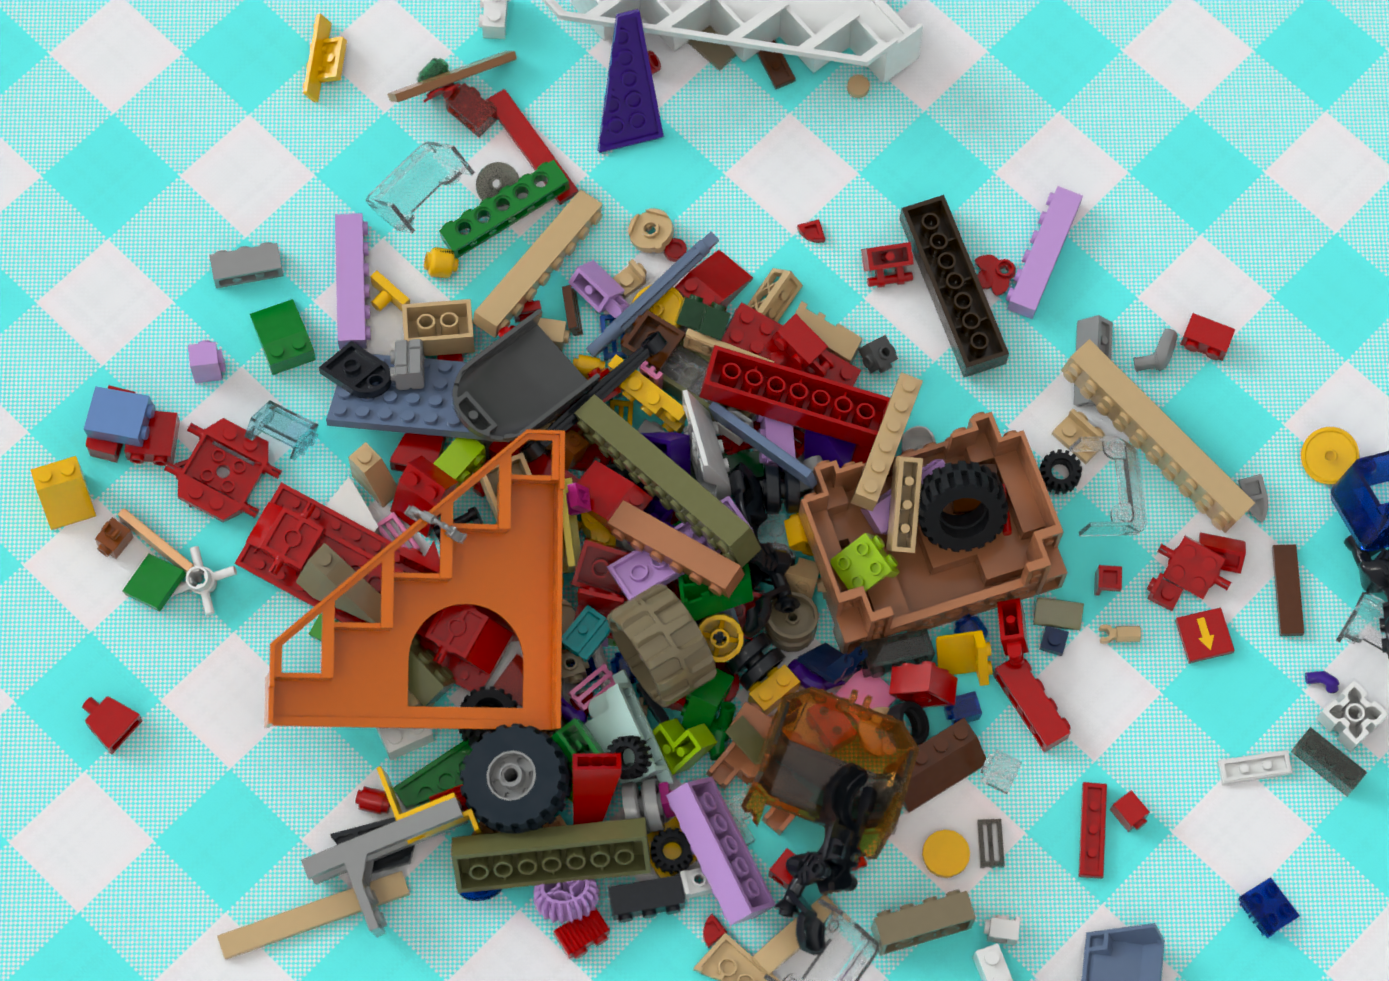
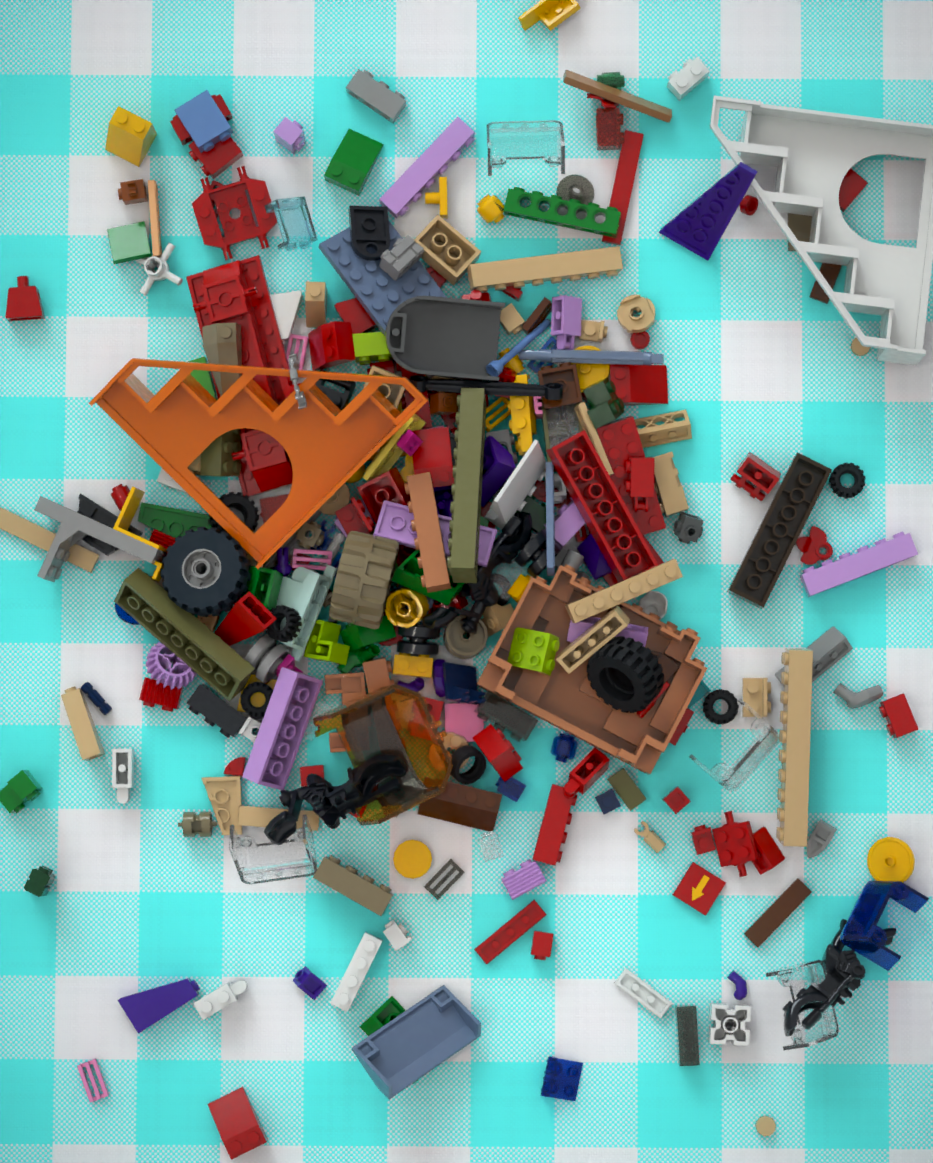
camera: 50 degrees right, 15 degrees up
(584, 371) = (496, 367): none -> medium blue piece
(586, 633) = (334, 526): teal plate -> none
(746, 738) = (361, 680): olive slope -> none
(812, 231) = (734, 410): red tile -> none
(965, 654) = (544, 757): yellow bracket -> none
(968, 186) = (855, 472): none -> black tyre
(1056, 773) = (523, 879): none -> lavender brick

